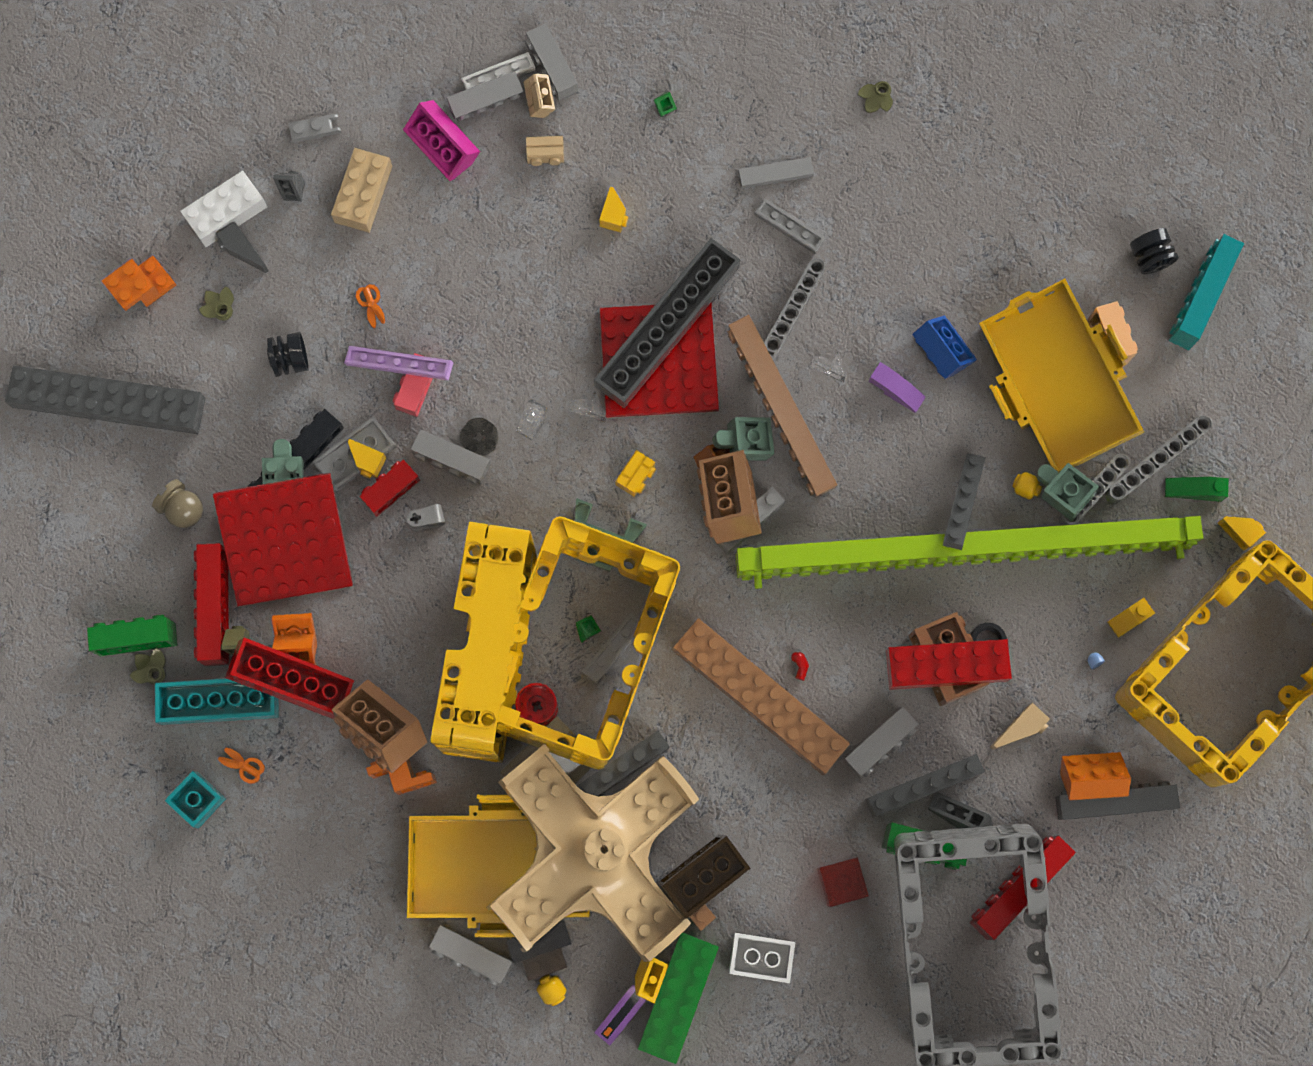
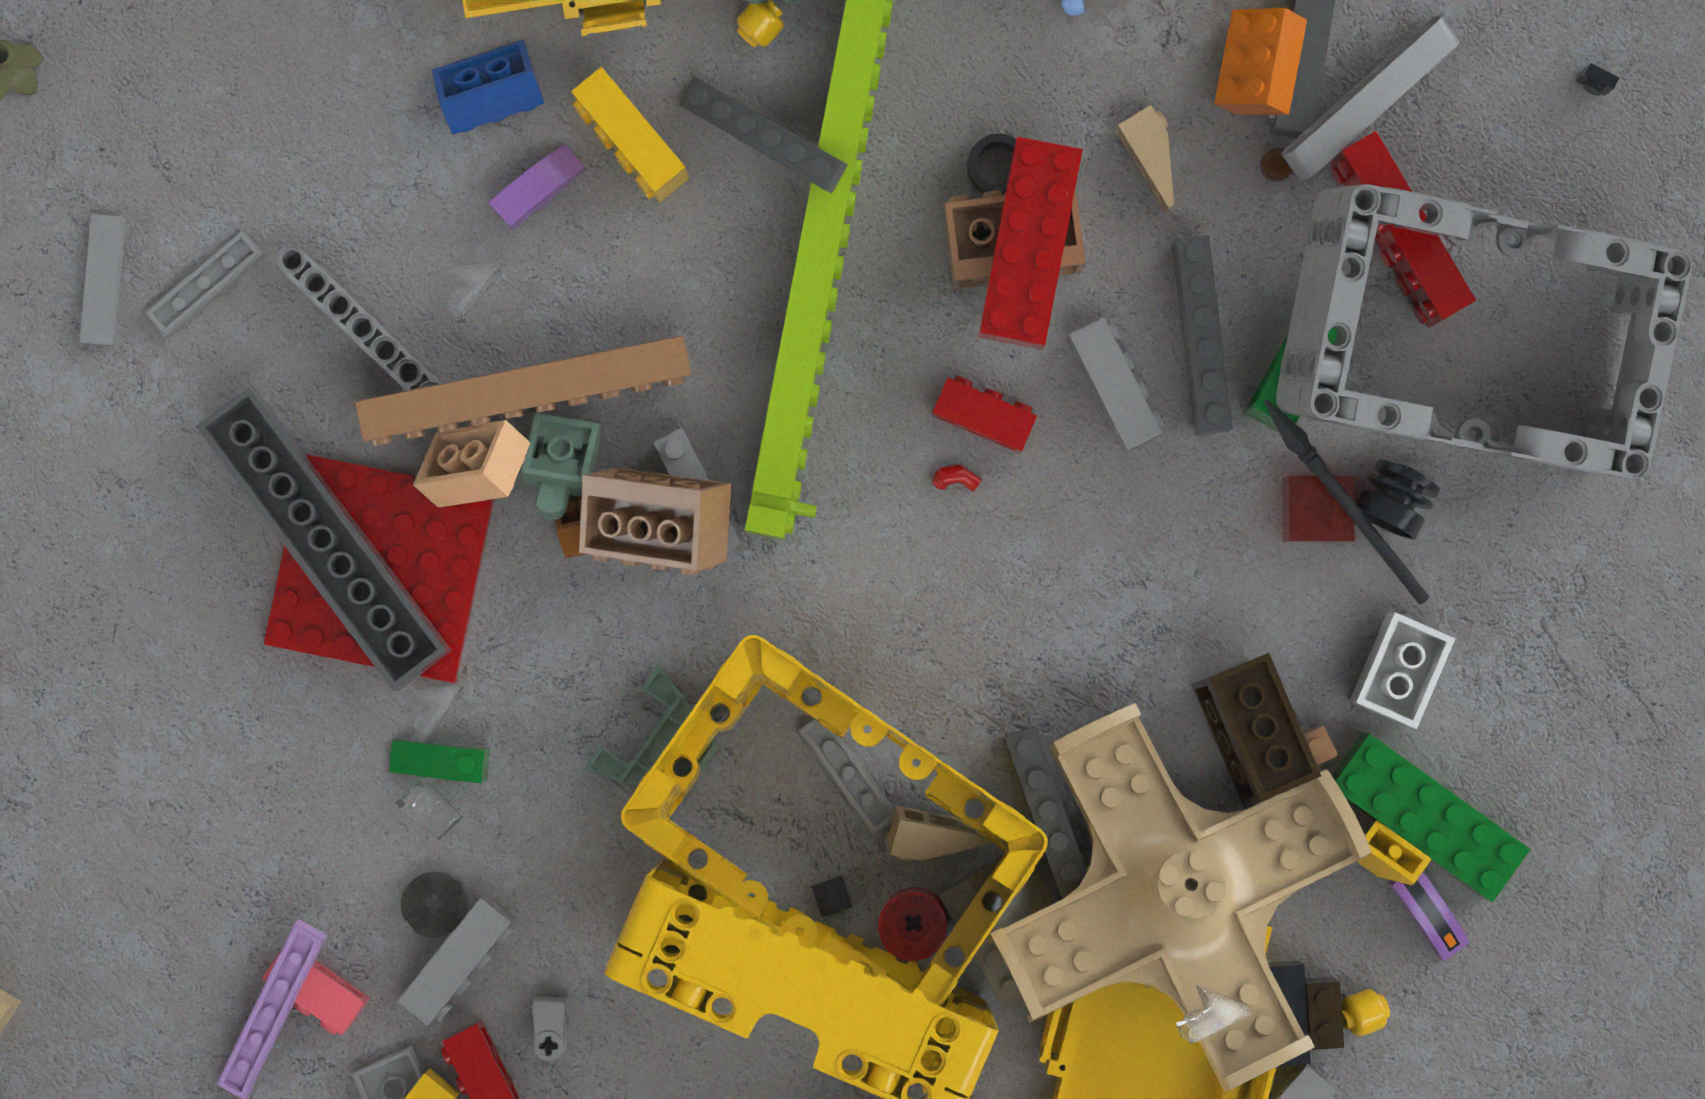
camera: 75 degrees left, 10 degrees up
(373, 309) = (160, 1028): orange piece -> none
(532, 889) = (1218, 1013): none -> clear slope
(540, 657) = (832, 896): none -> black plate
(560, 419) = (439, 761): none -> green slope
(587, 628) = (804, 806): green slope -> none
(590, 702) = (929, 835): none -> tan slope
(613, 213) = (100, 576): yellow slope -> none
(635, 473) = (568, 660): yellow brick -> none
(732, 390) = (472, 464): none -> light nougat brick
(761, 697) = (992, 556): medium nougat brick -> none
(842, 671) = (984, 414): none -> red brick
(862, 926) = (1397, 497): none -> black wheel
(879, 853) = (1298, 442): none -> black piece
(942, 426) = (628, 132): none -> yellow brick
(958, 813) = (1262, 292): dark grey slope -> none
(1038, 805) = (1274, 166): none -> reddish brown tile
(1095, 847) = (1370, 98): none -> light grey beam
(1148, 985) = (1597, 80): none -> black plate

